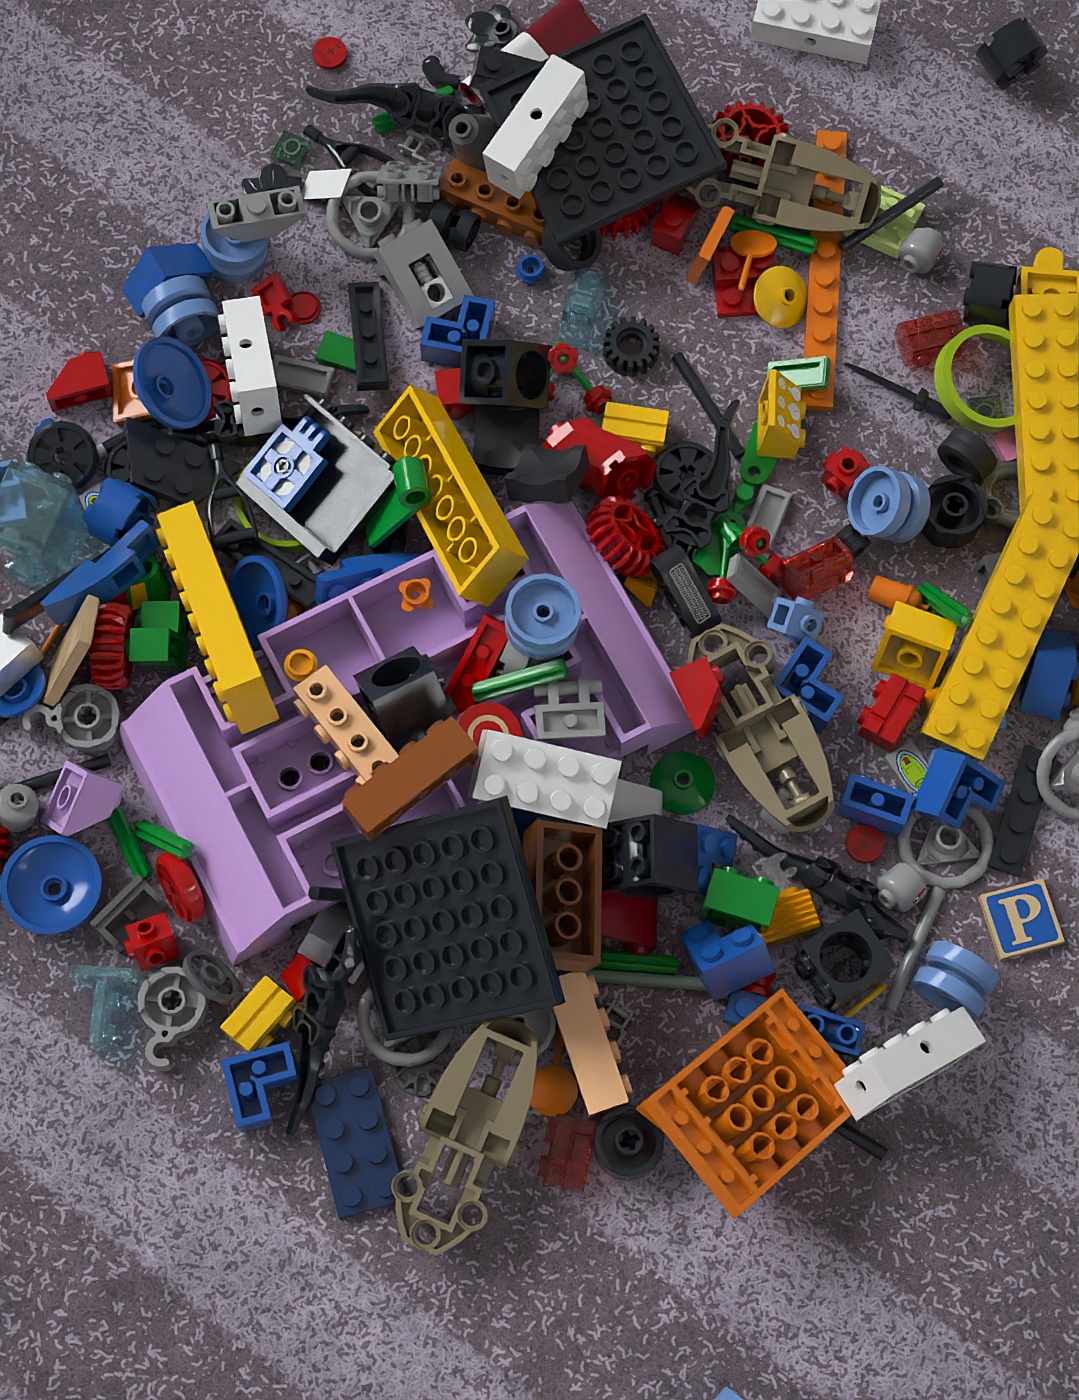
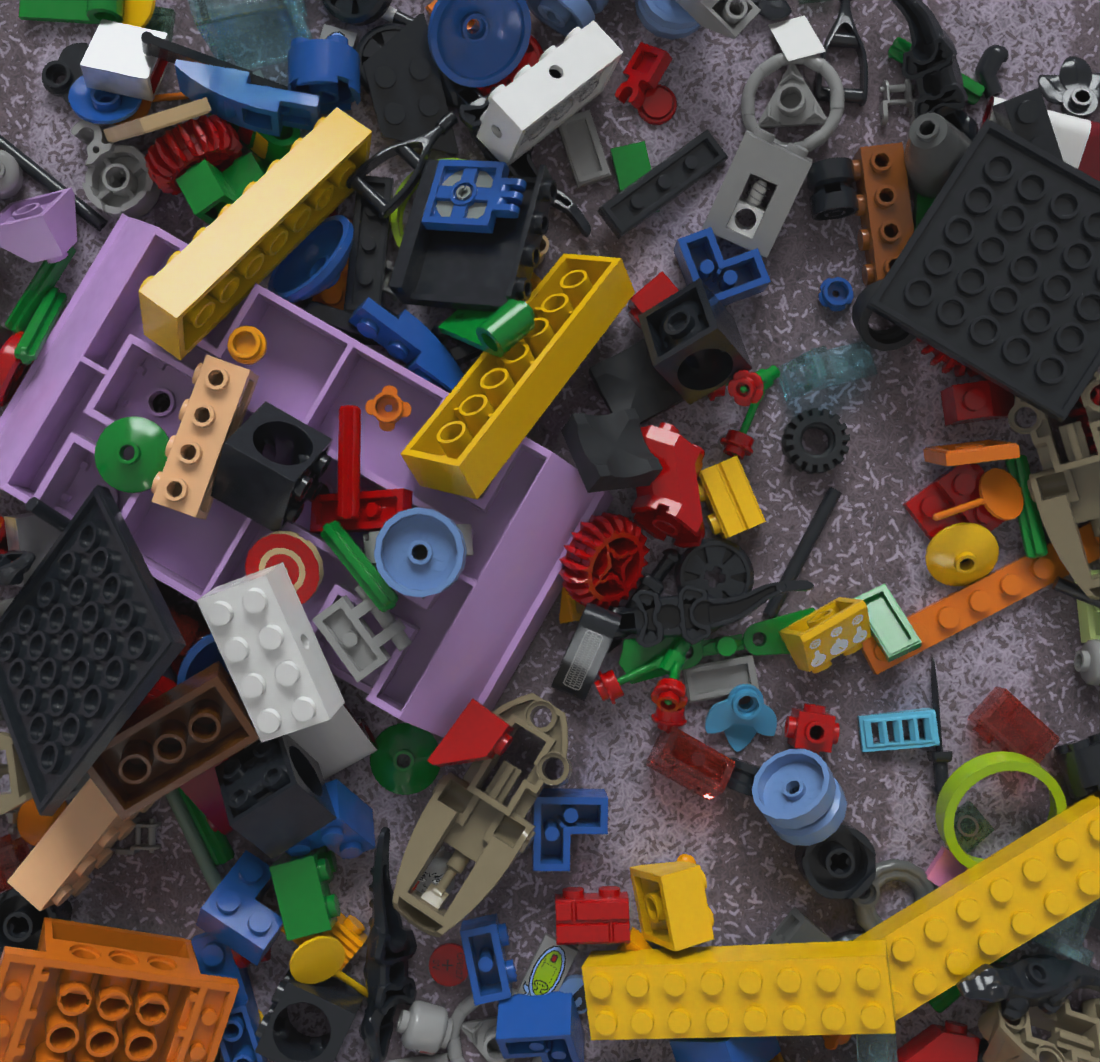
camera: 60 degrees right, 15 degrees up
(317, 814) = (149, 445): none -> green dish
(396, 173) = (857, 120): light grey hinge -> none
(409, 778) = (170, 529): dark orange brick -> none
(437, 646) = (349, 462): none -> red axle
(536, 127) = (977, 201): white brick -> none
(752, 584) = (634, 713): light grey tile -> none
(770, 868) = (355, 906): clear tile -> none
(796, 619) = (624, 775): medium blue brick -> none
(799, 918) = (319, 960): none -> yellow piece
(808, 520) = (741, 721): none -> dark azure plate
(888, 592) = (715, 853): orange piece -> none
(889, 397) = (930, 728): none -> medium azure slope
(945, 605) = (728, 912): green axle -> none
(967, 455) = (904, 841): black tyre -> none

